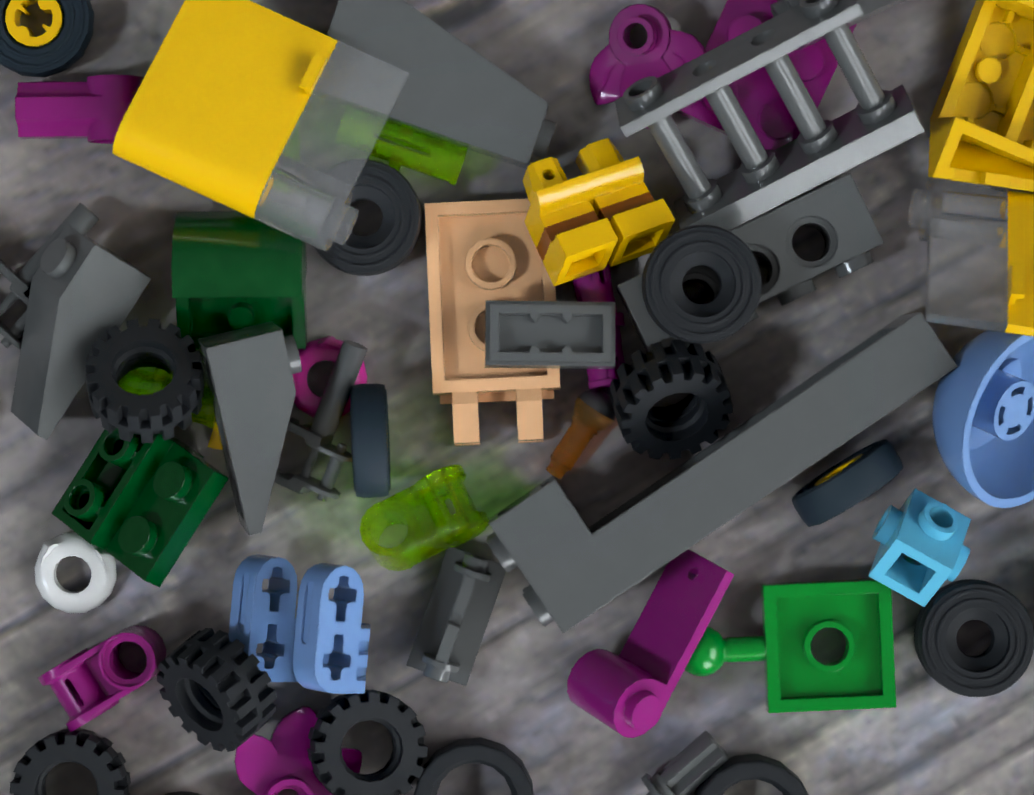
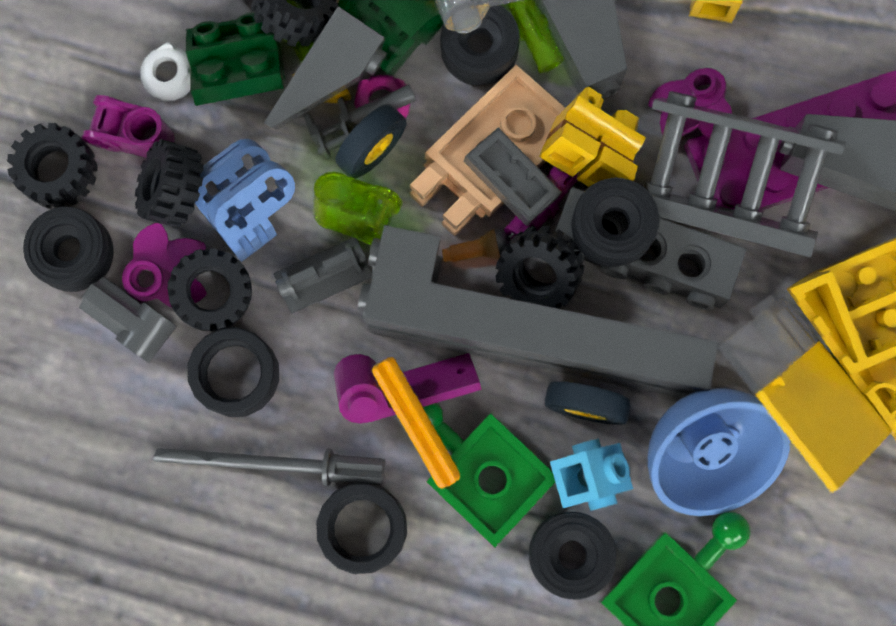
camera: 50 degrees right, 10 degrees down
(707, 672) = (416, 422): none -> light orange axle

